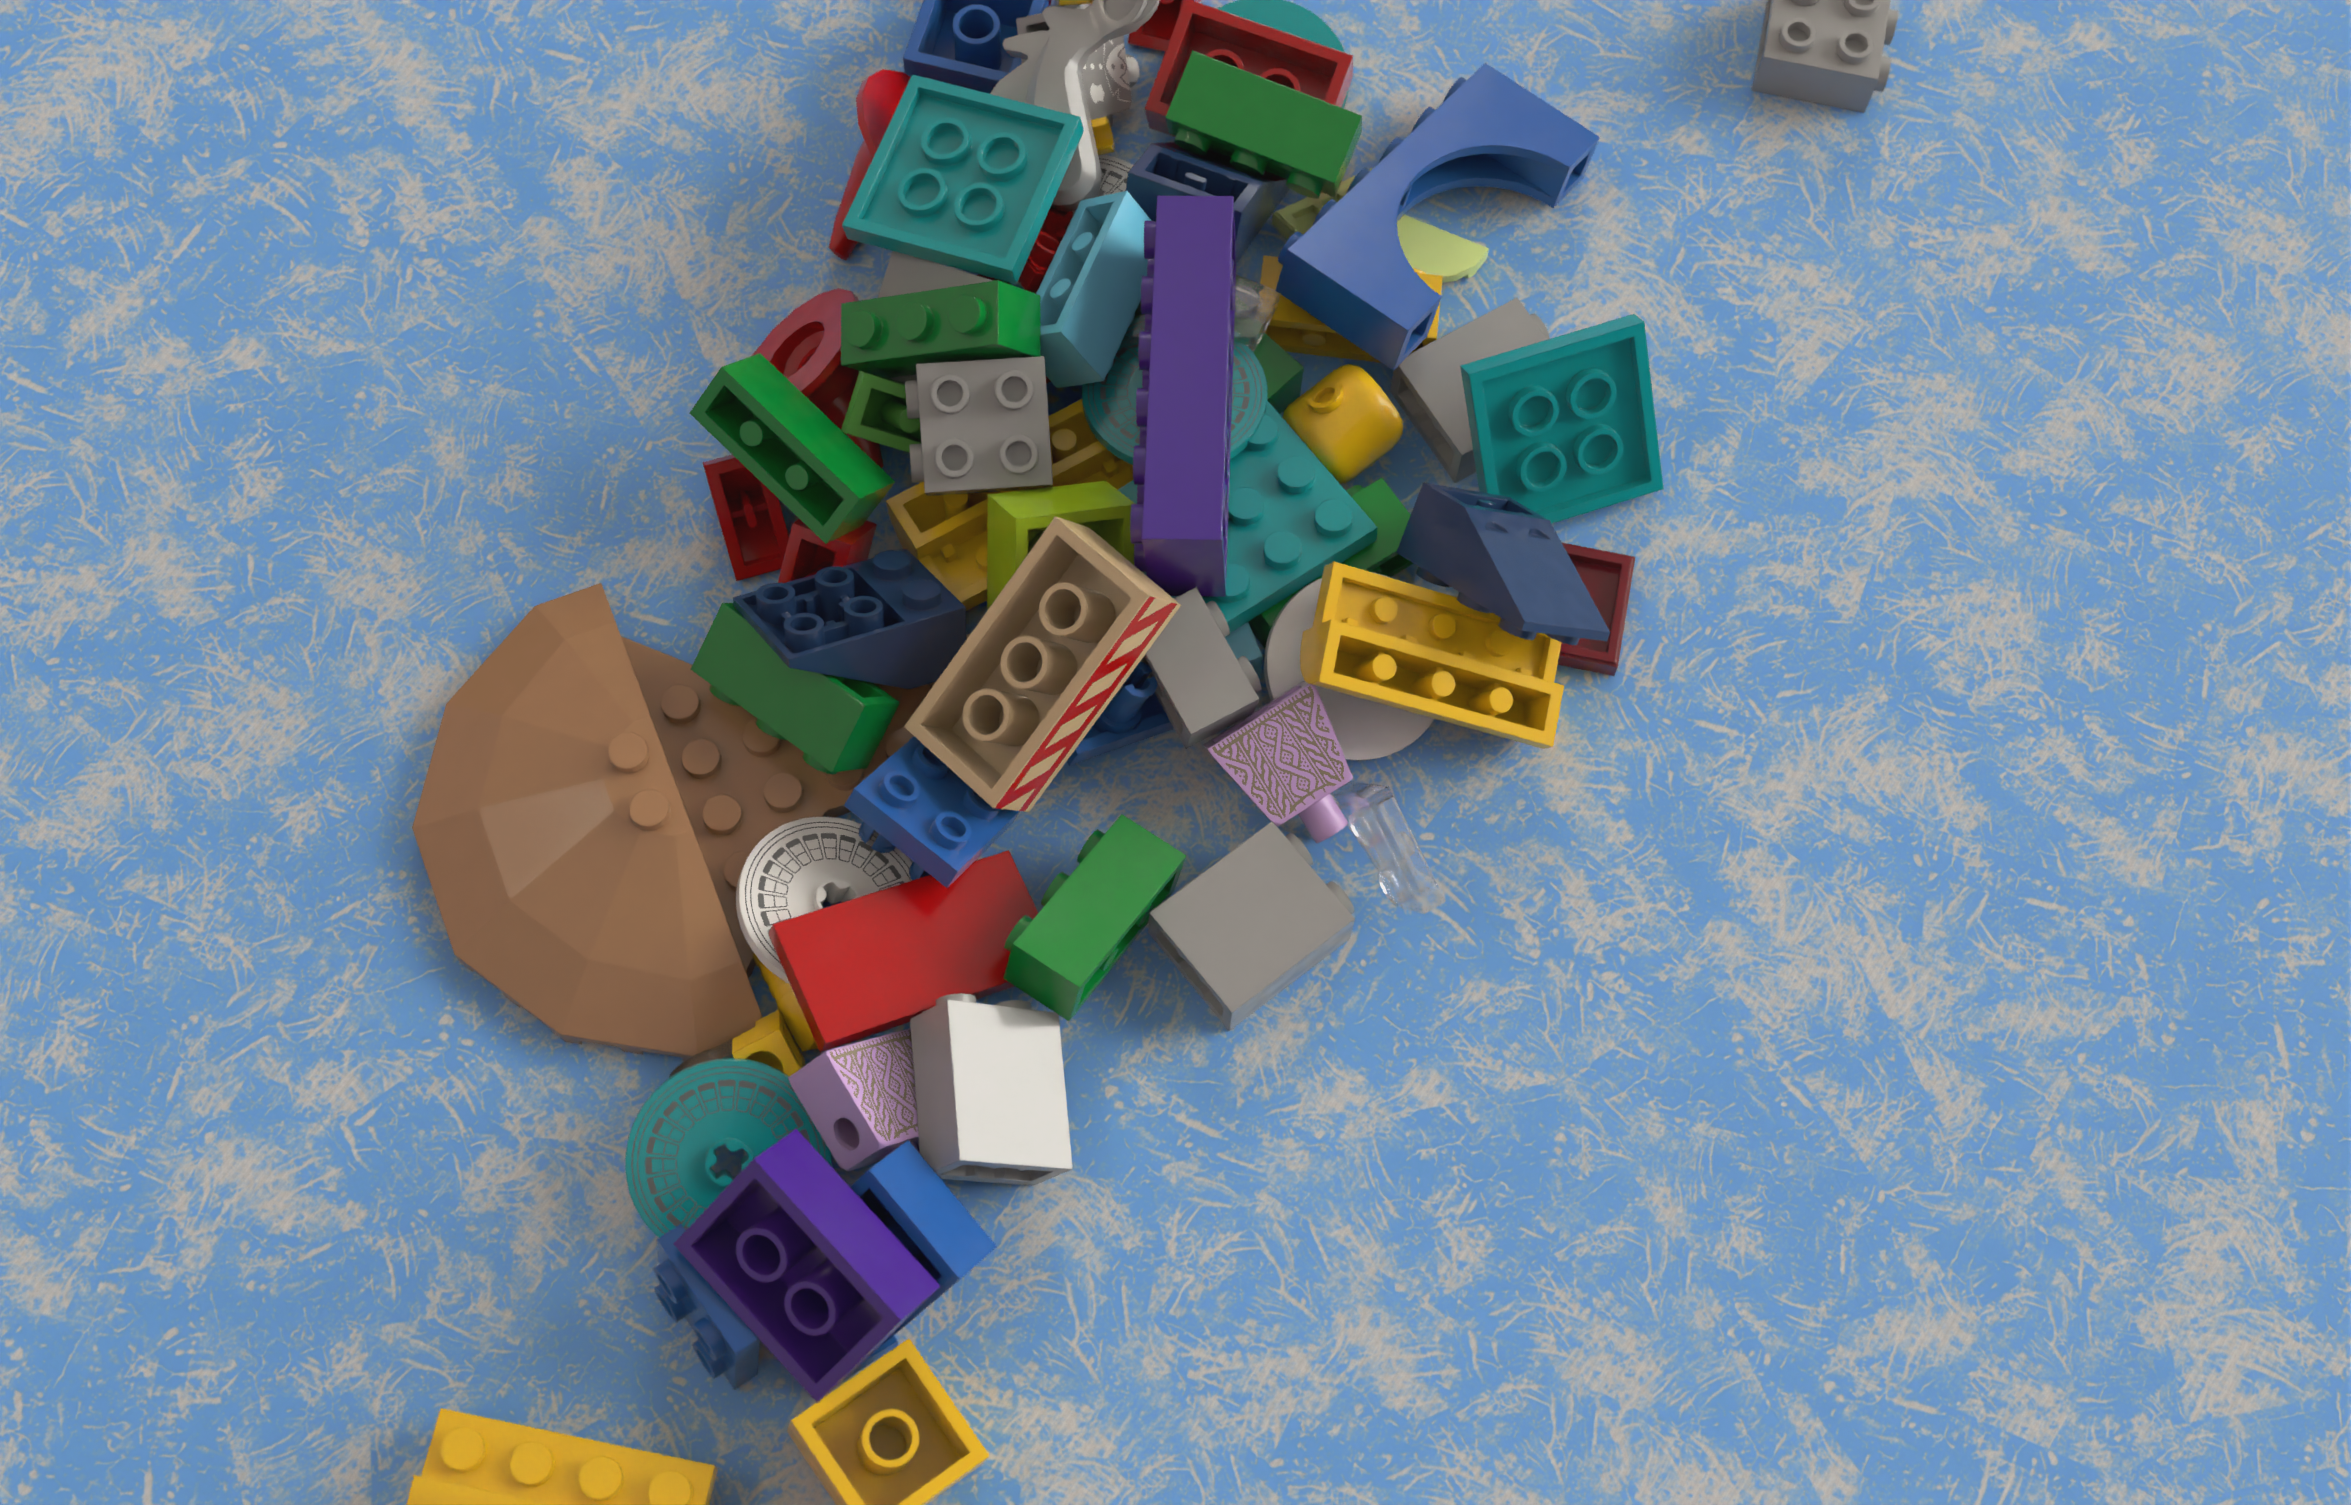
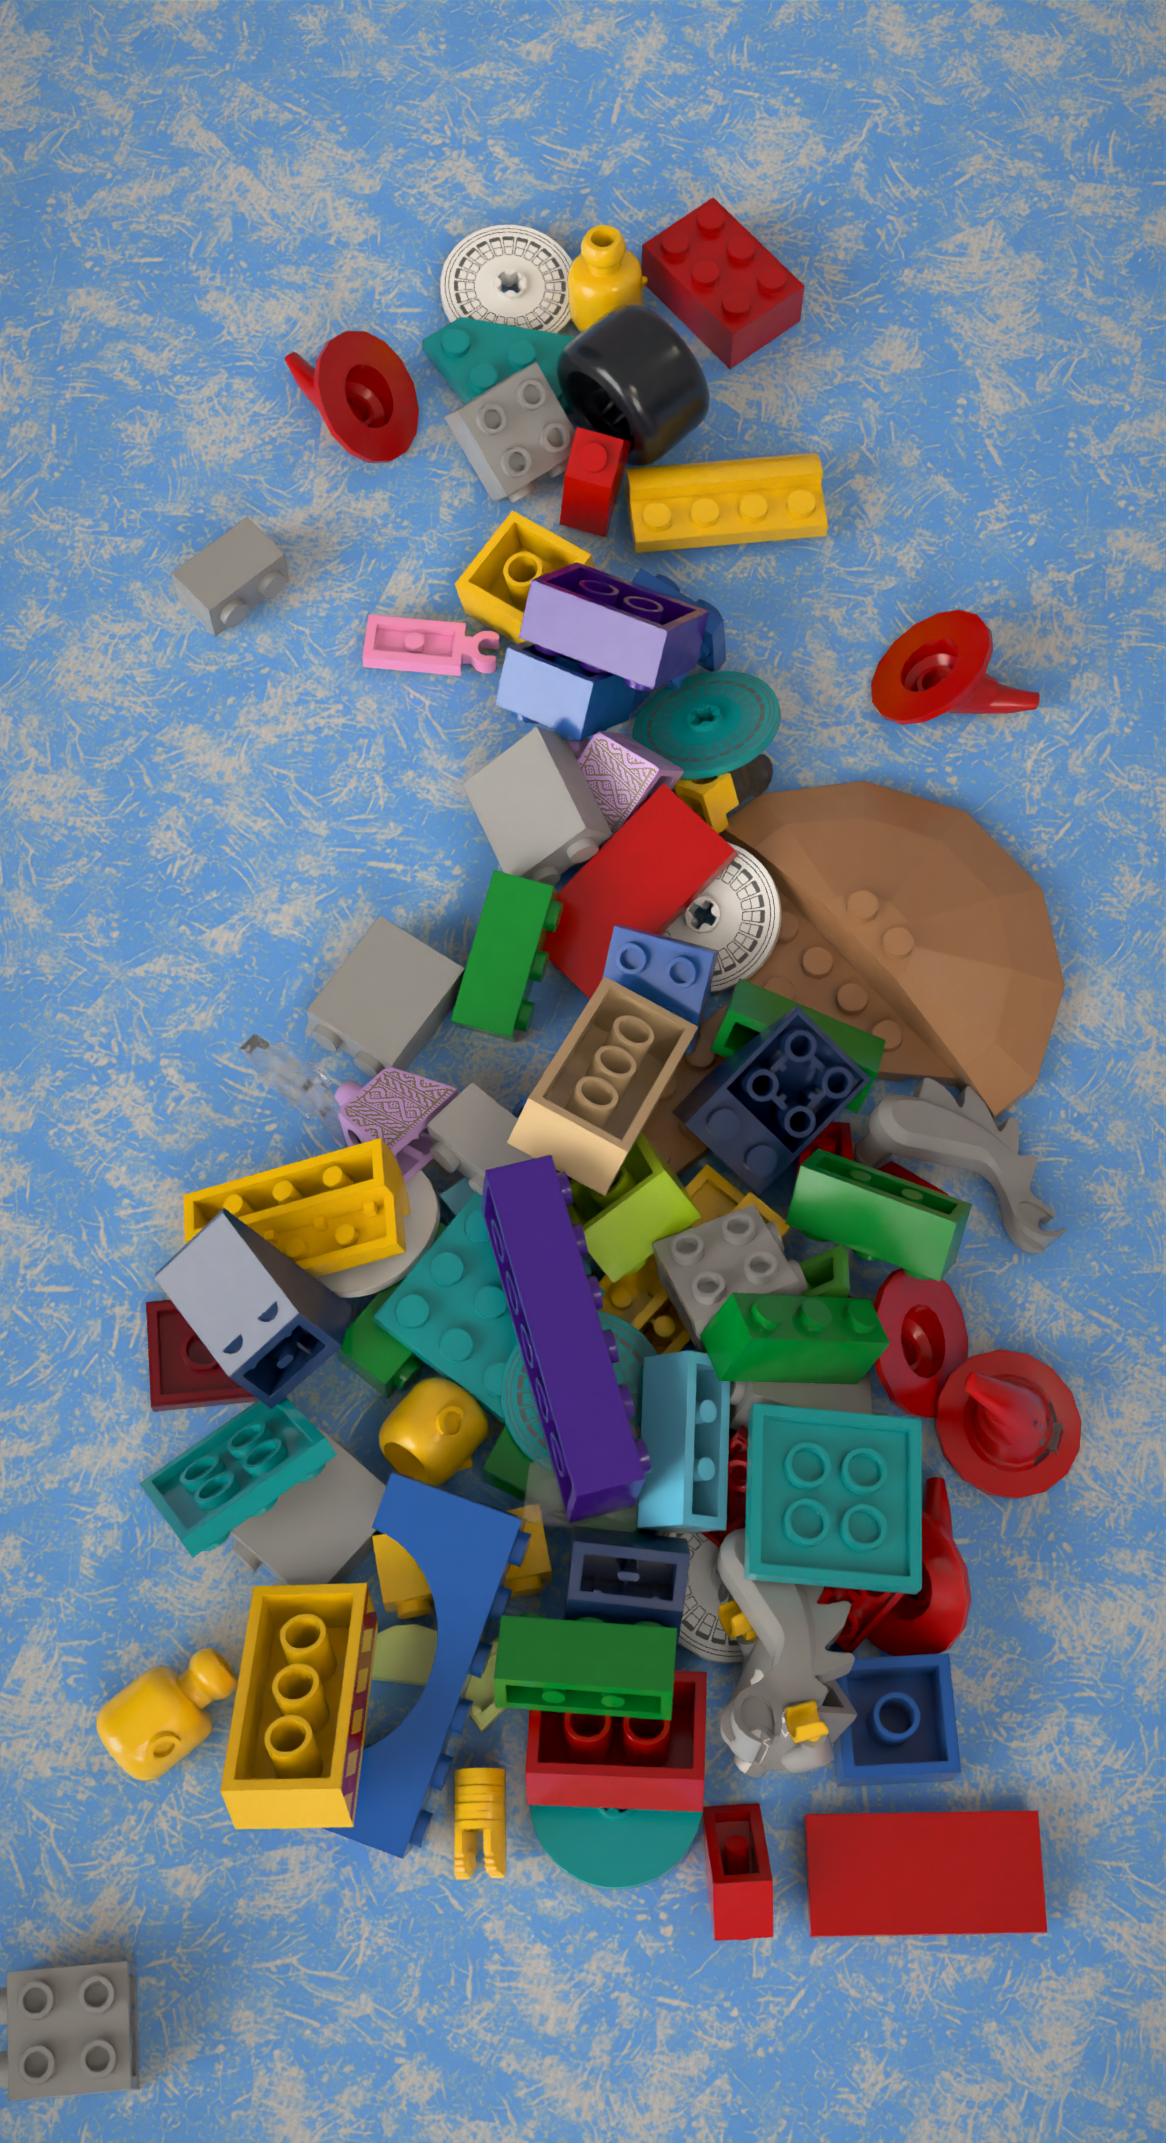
camera: 165 degrees right, 0 degrees up
(400, 1136) = (941, 670): none -> red piece
(653, 560) = (962, 1136): none -> light grey animal
(739, 277) = (1007, 1424): none -> red piece
(1055, 1412) = (426, 646): none -> bright pink plate
(1396, 95) = (480, 1808): none -> yellow hinge
(1553, 178) = (301, 1707): none -> yellow brick
(1685, 257) = (164, 1714): none -> yellow piece

